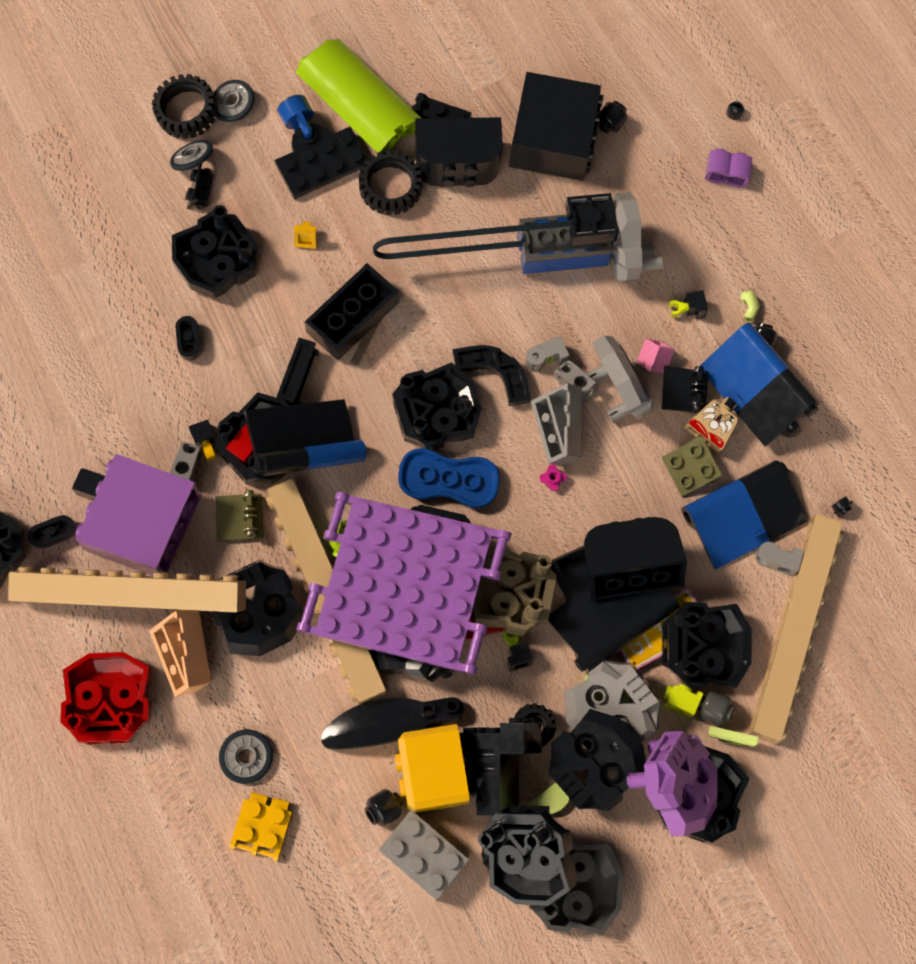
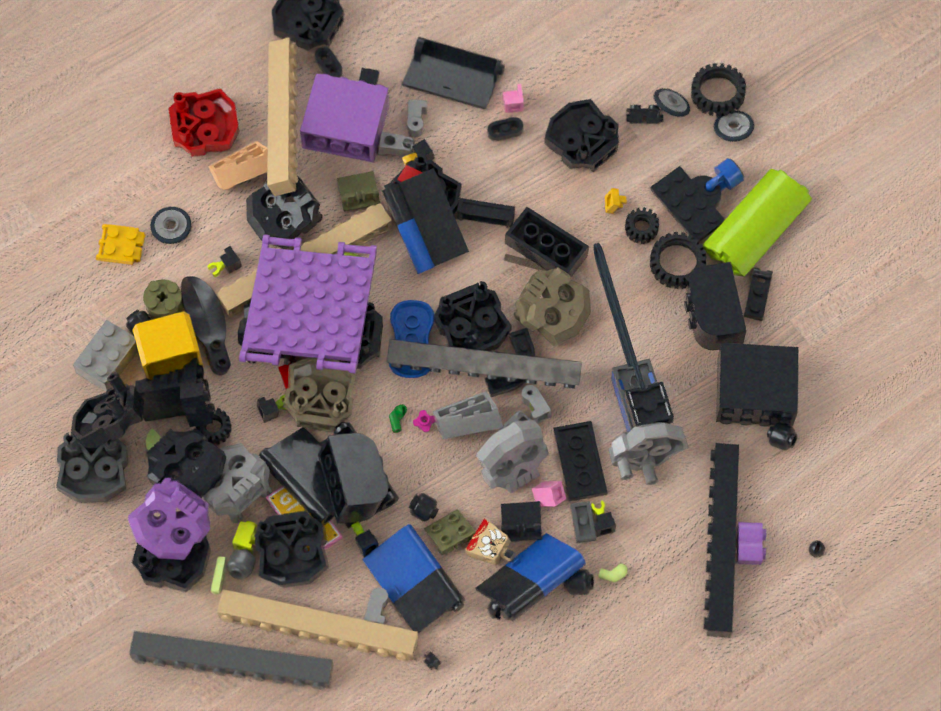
camera: 90 degrees right, 5 degrees down
(98, 387) = (453, 73): none -> black door
(150, 322) = (513, 100): none -> bright pink panel
(150, 437) = (415, 122): none -> light grey leg
(312, 684) = (228, 260): none -> black piece
(340, 201) = (643, 215): none -> black tyre
(350, 760) = (161, 291): none -> olive brick
(431, 315) = (567, 313): none -> dark tan brick
(497, 398) = (484, 362): none -> brick
(542, 509) = (396, 416): none -> green arm
(621, 318) = (580, 461): none -> black tile
(661, 491) = (423, 507): none -> black head
(691, 326) = (583, 522): none -> dark grey plate
(699, 560) = (365, 540): none -> black piece
(723, 192) = (723, 540): none -> black brick
(833, 735) = (231, 659): none -> dark grey brick

